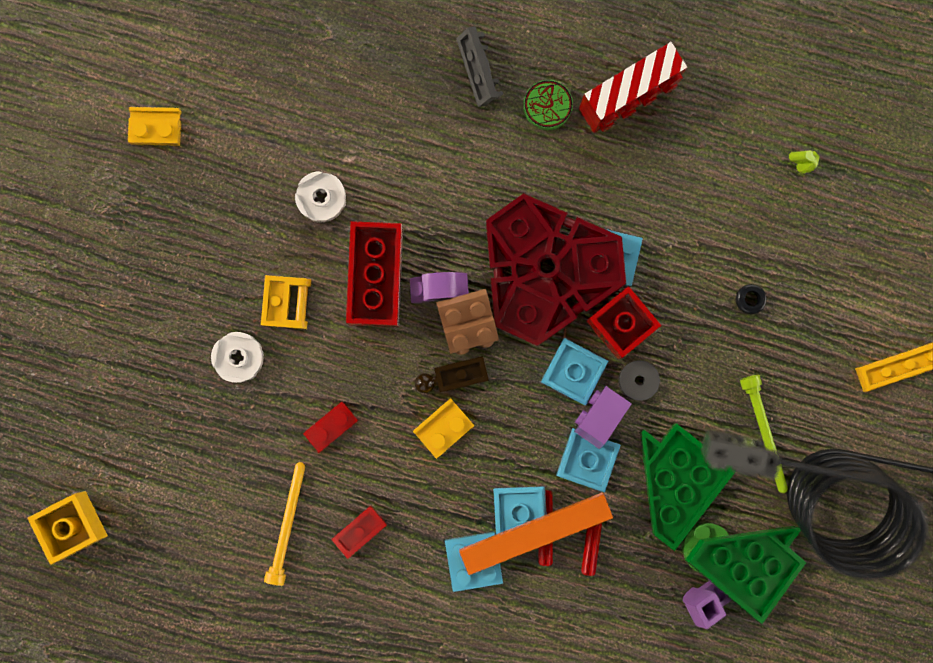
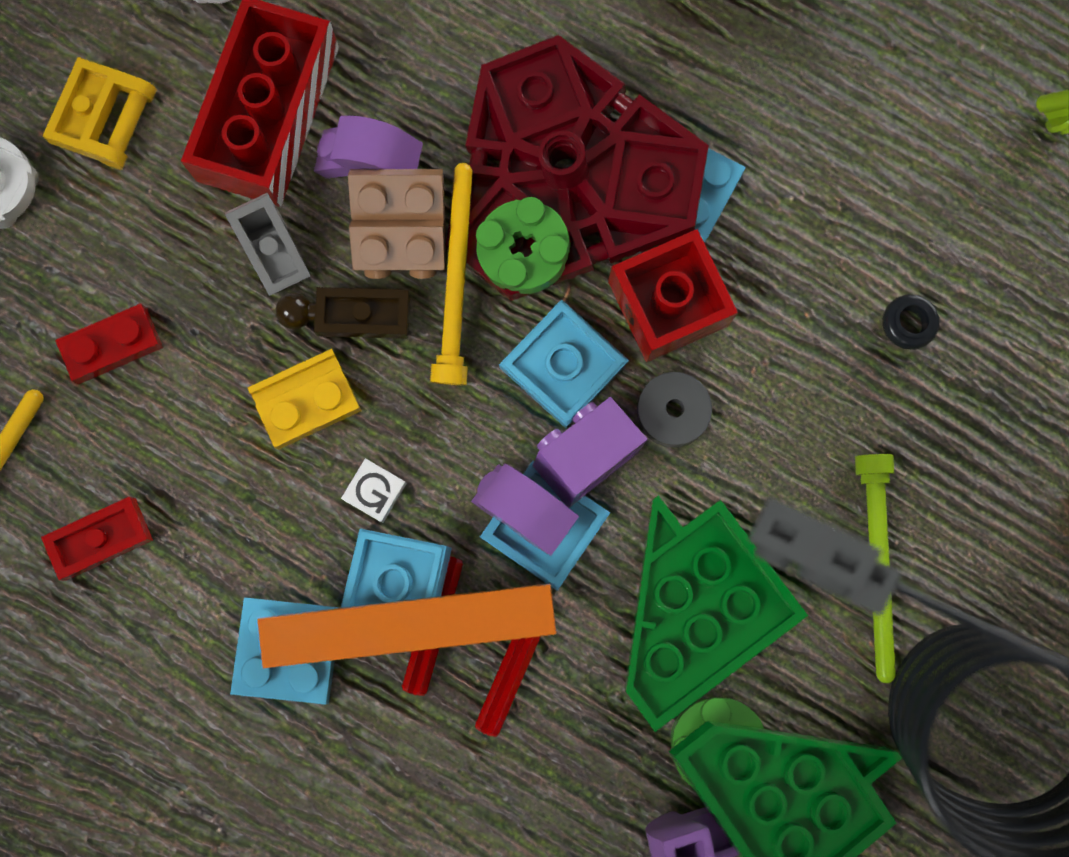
camera: 20 degrees right, 5 degrees down
(402, 353) = (268, 243): none -> light grey slope
(494, 466) = (374, 490): none -> white tile
(515, 389) = (450, 365): none -> yellow piece
(538, 303) = (529, 220): none -> bright green plate
(577, 456) = (524, 507): none -> medium lavender brick

